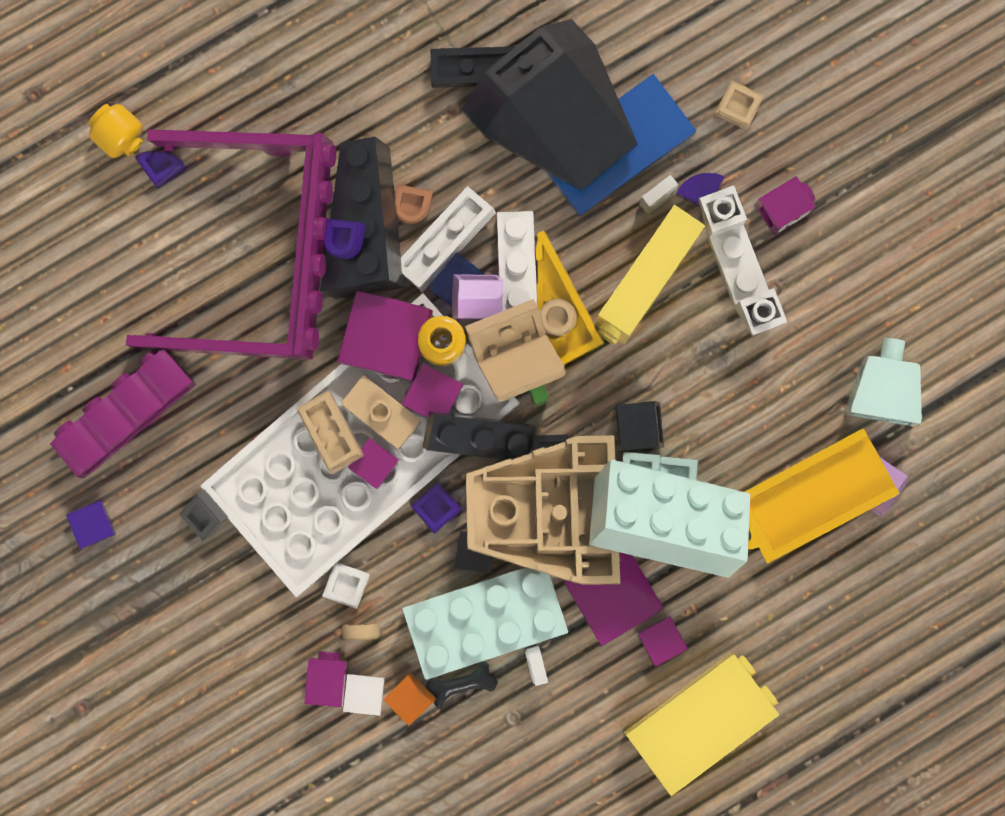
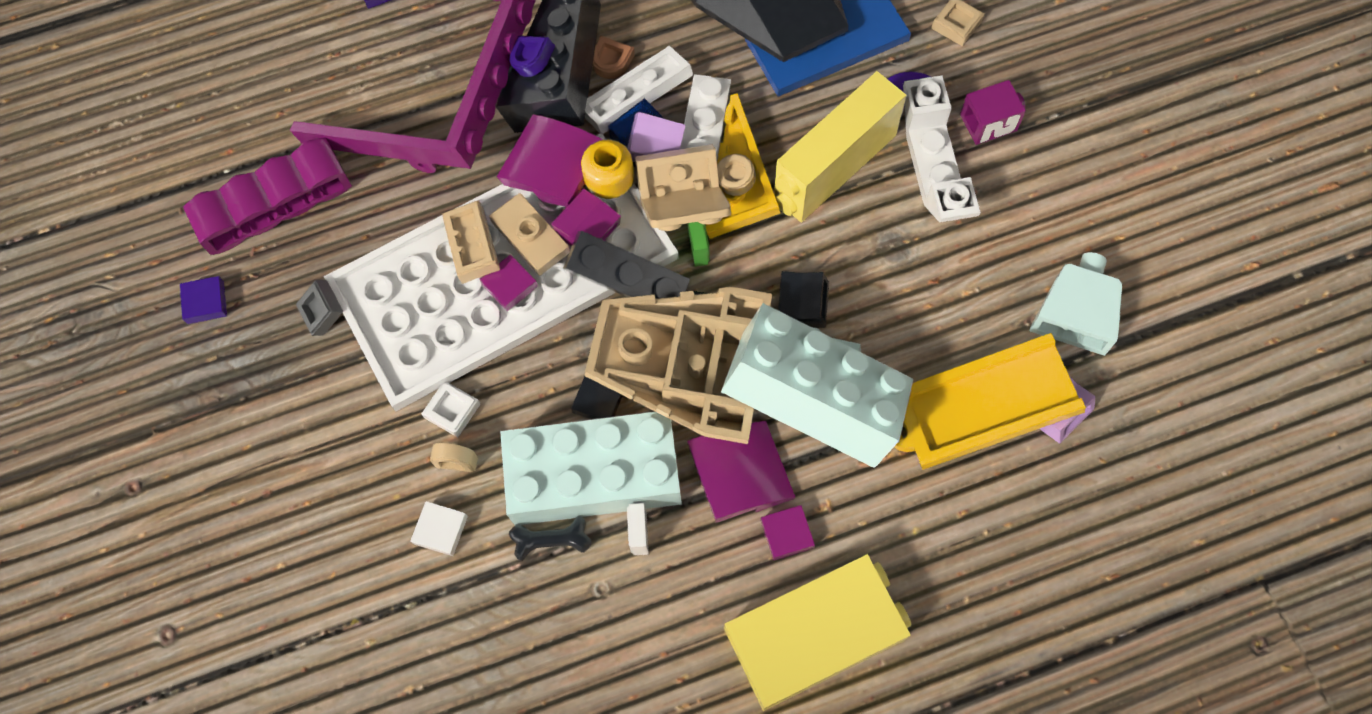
camera: 15 degrees right, 15 degrees down
(326, 680) = (399, 501): magenta brick -> none
(409, 699) = (487, 541): orange tile -> none
(436, 507) = (566, 346): dark purple tile -> none
(658, 194) = (858, 76): white tile -> none

